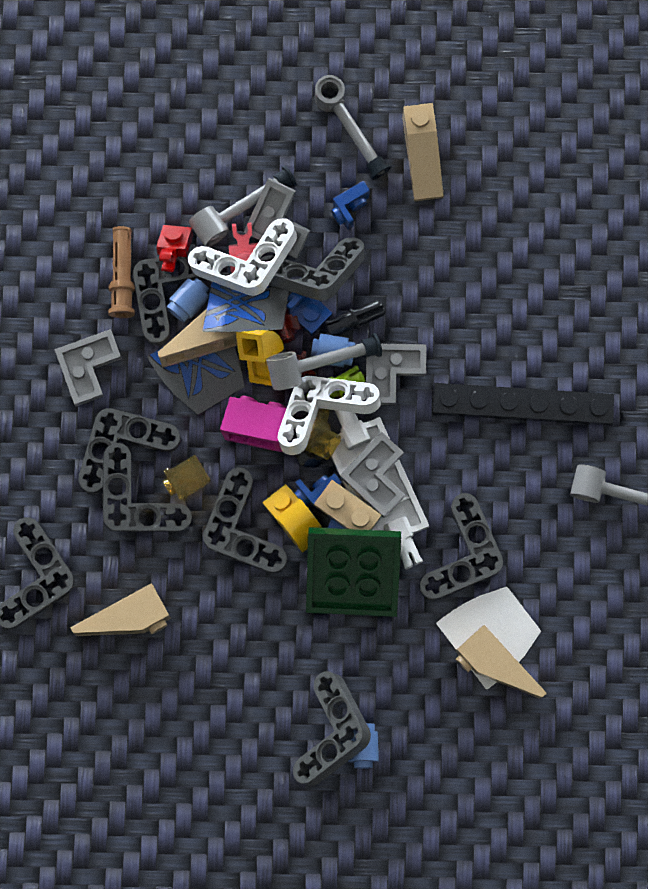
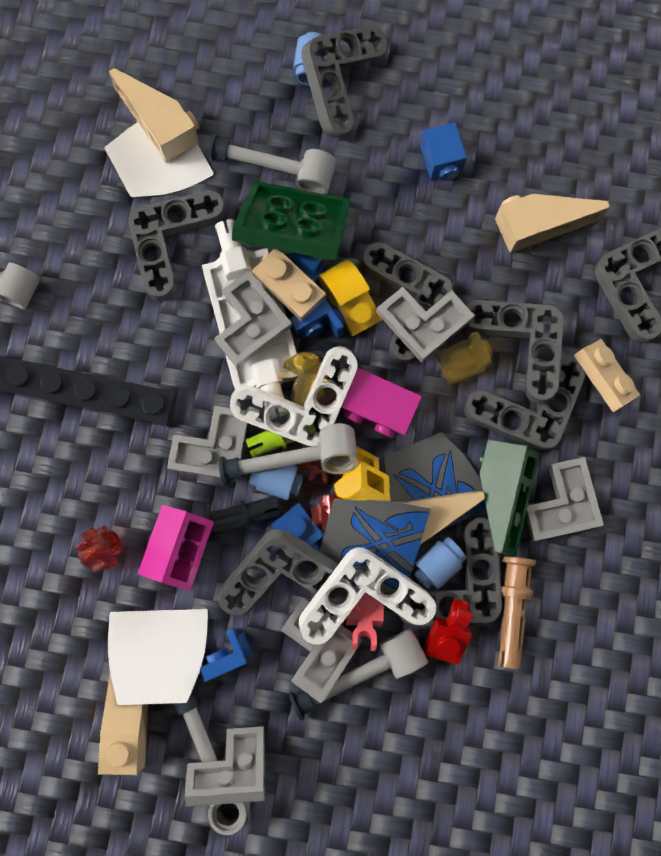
camera: 175 degrees left, 0 degrees up
(59, 480) = (607, 375): none -> tan plate
(139, 366) = (507, 485): none -> slope
(224, 490) = (421, 329): none -> light grey plate
(226, 666) = (443, 152): none -> blue brick
(326, 114) = (235, 779): none -> light grey plate
(343, 629) = (313, 171): none -> light grey piece
(406, 280) = (175, 547): none -> dark pink brick
(408, 199) = (156, 654): none -> white sticker
(468, 272) = (99, 549): none -> clear red gear

